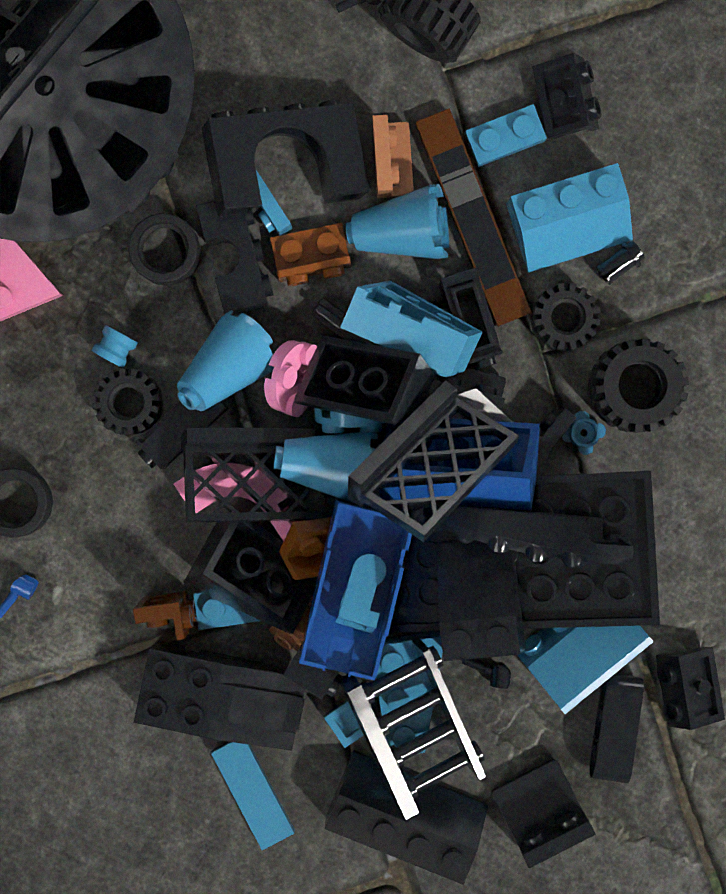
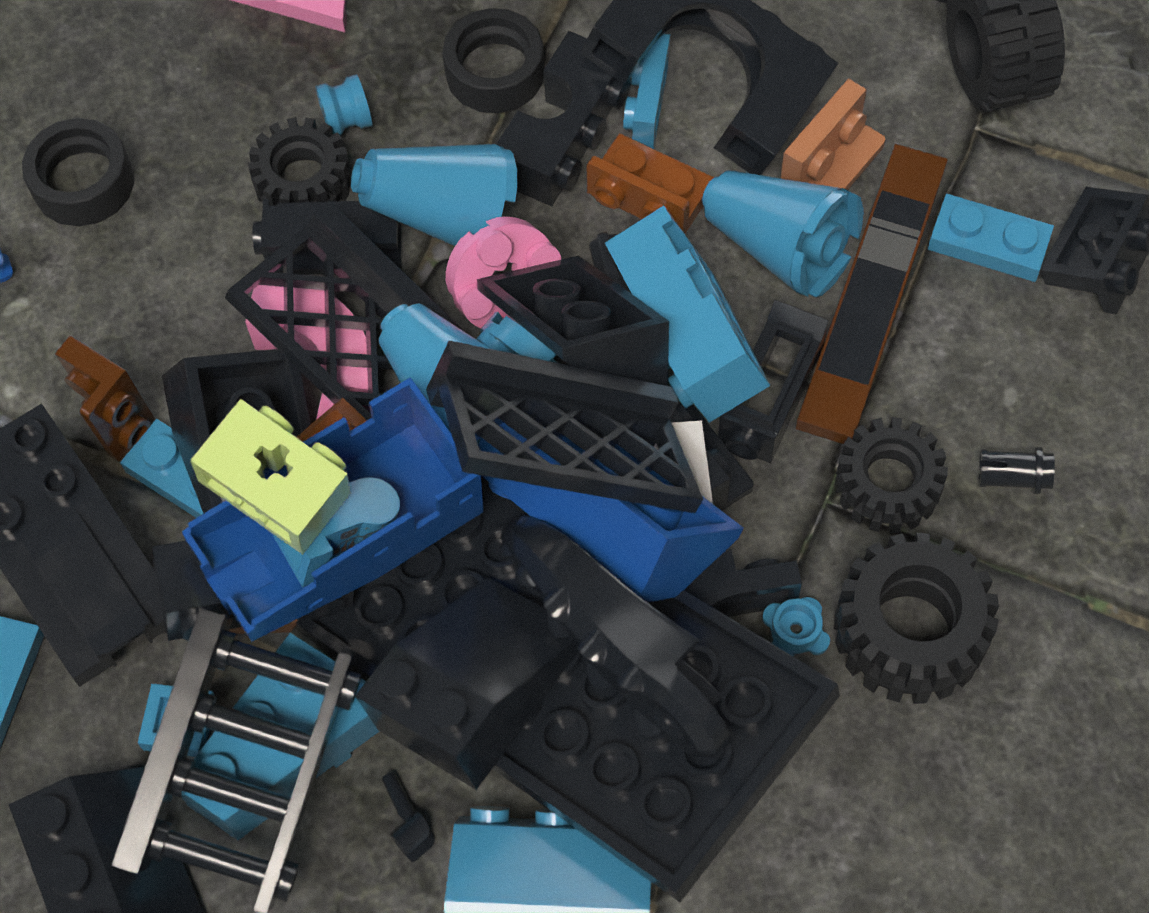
camera: 45 degrees right, 25 degrees down
(350, 622) = (288, 507): none -> yellowish green brick
(571, 217) = (995, 369): dark azure slope -> none

